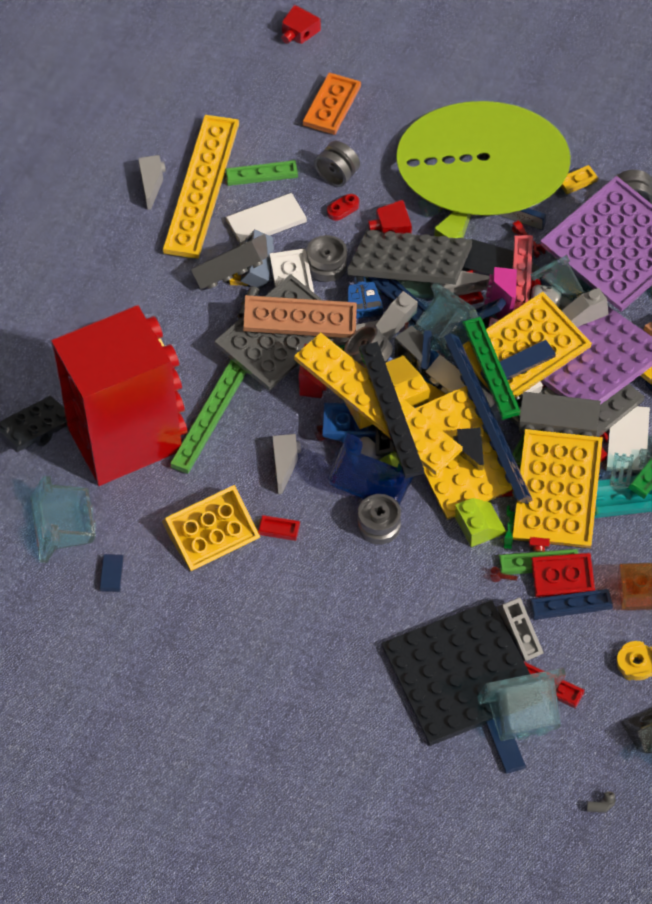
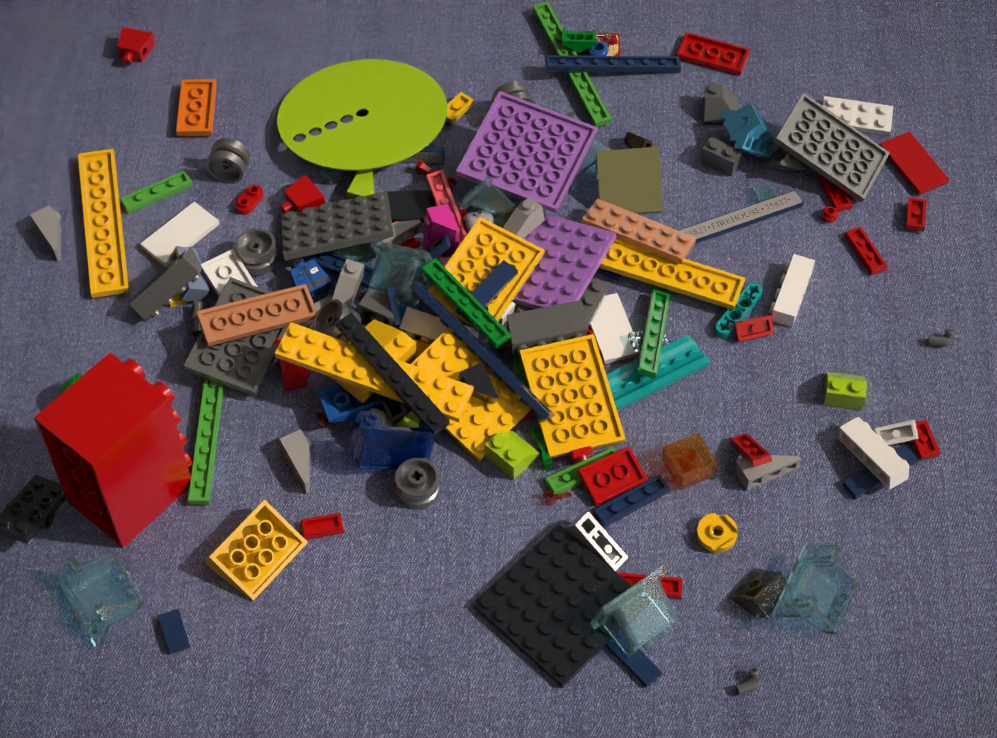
camera: 25 degrees left, 0 degrees up
(623, 459) = (618, 348): clear light blue tile -> none

